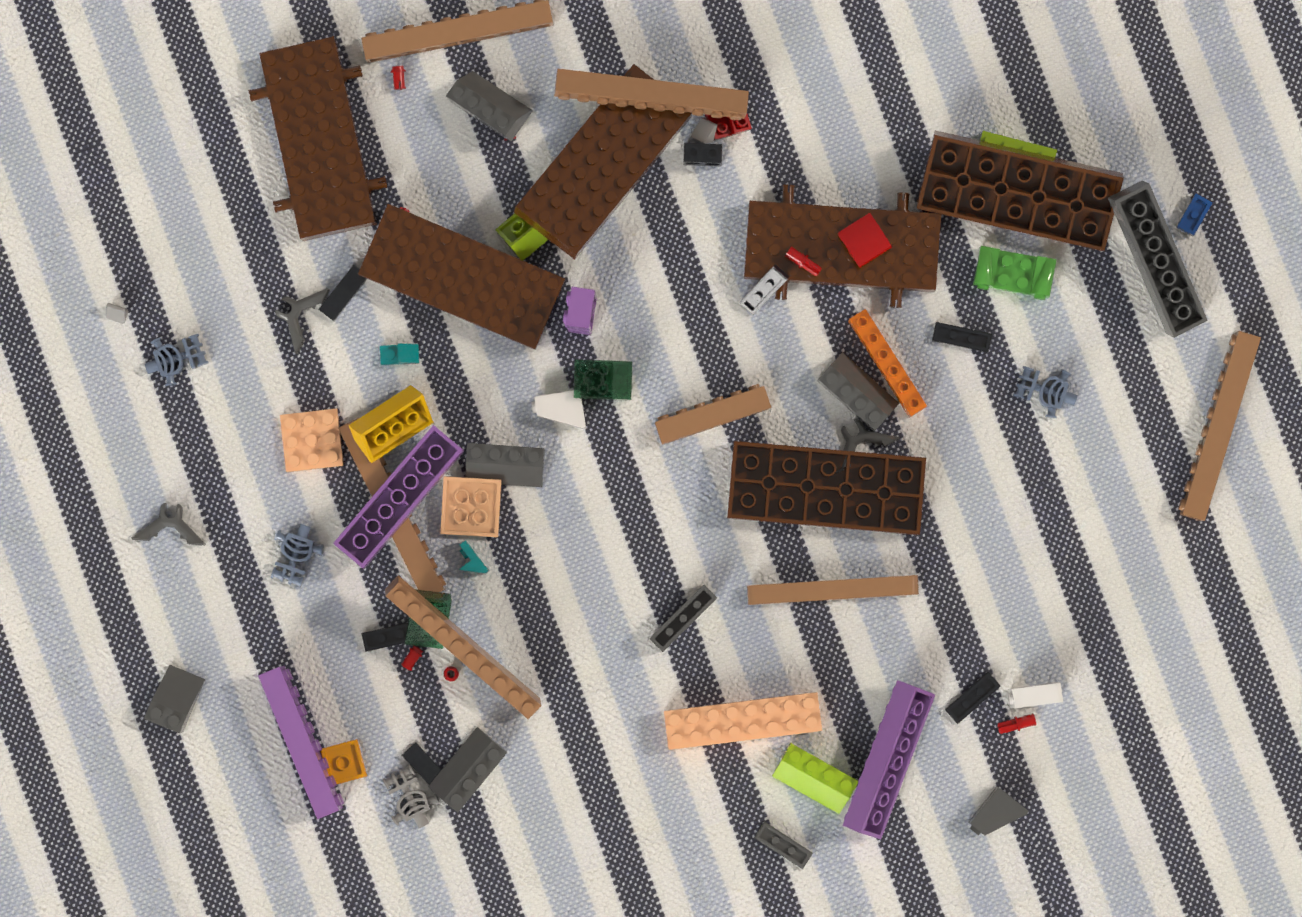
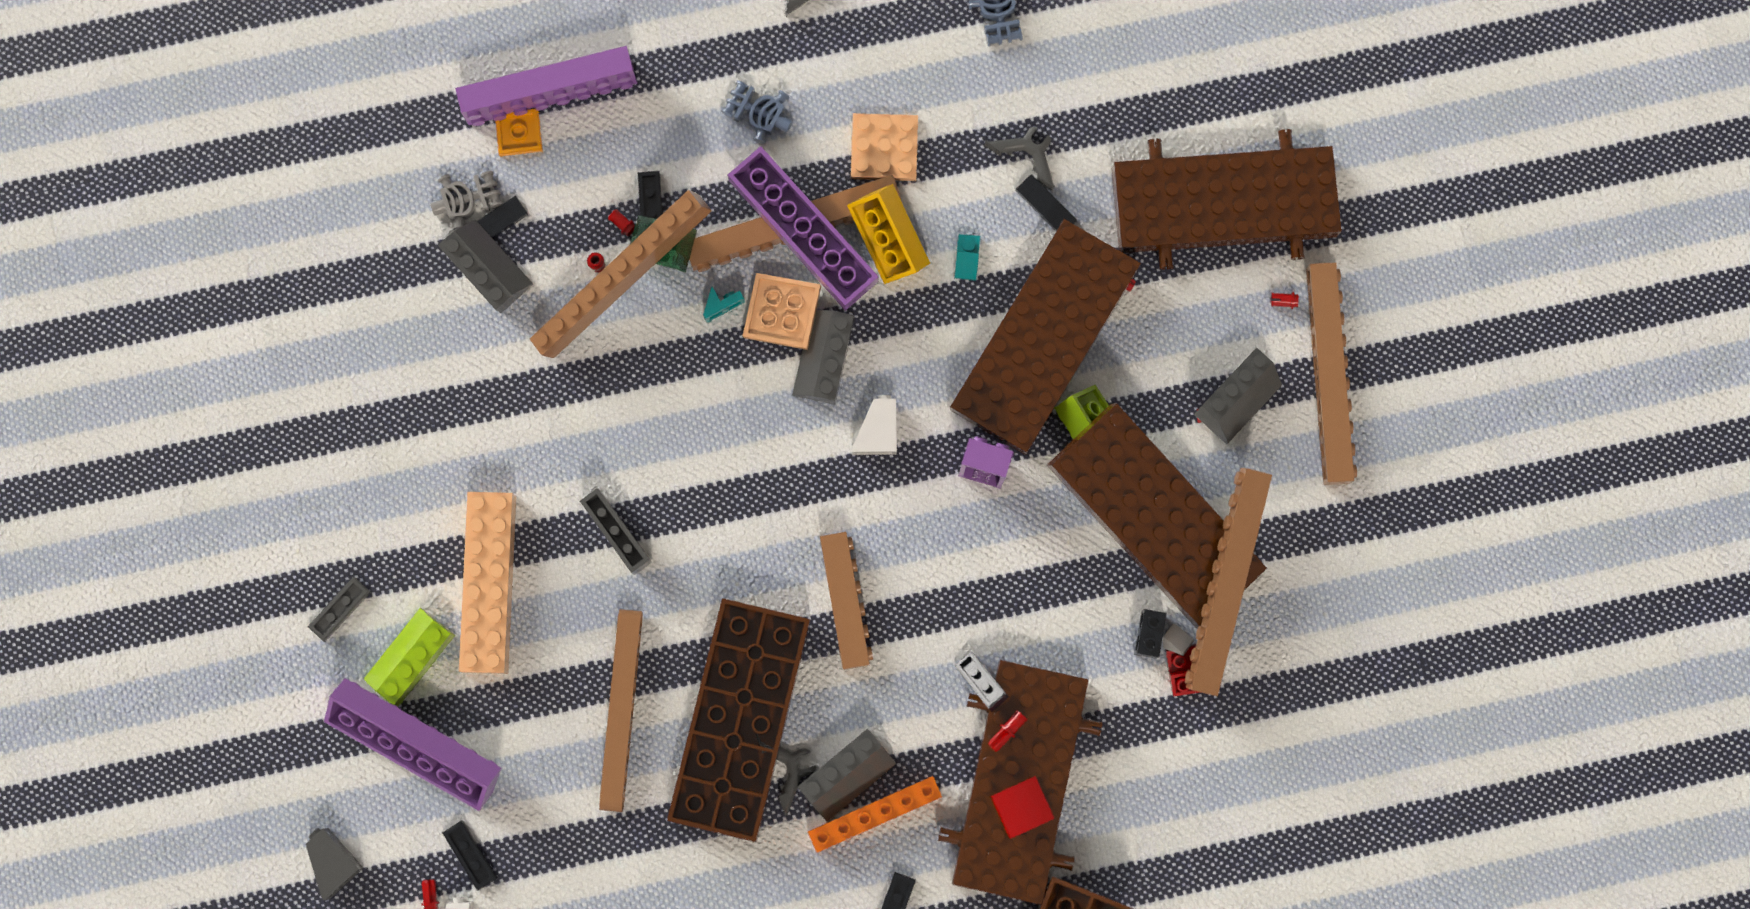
camera: 90 degrees right, 5 degrees down
(603, 380) = (903, 479): clear green slope -> none

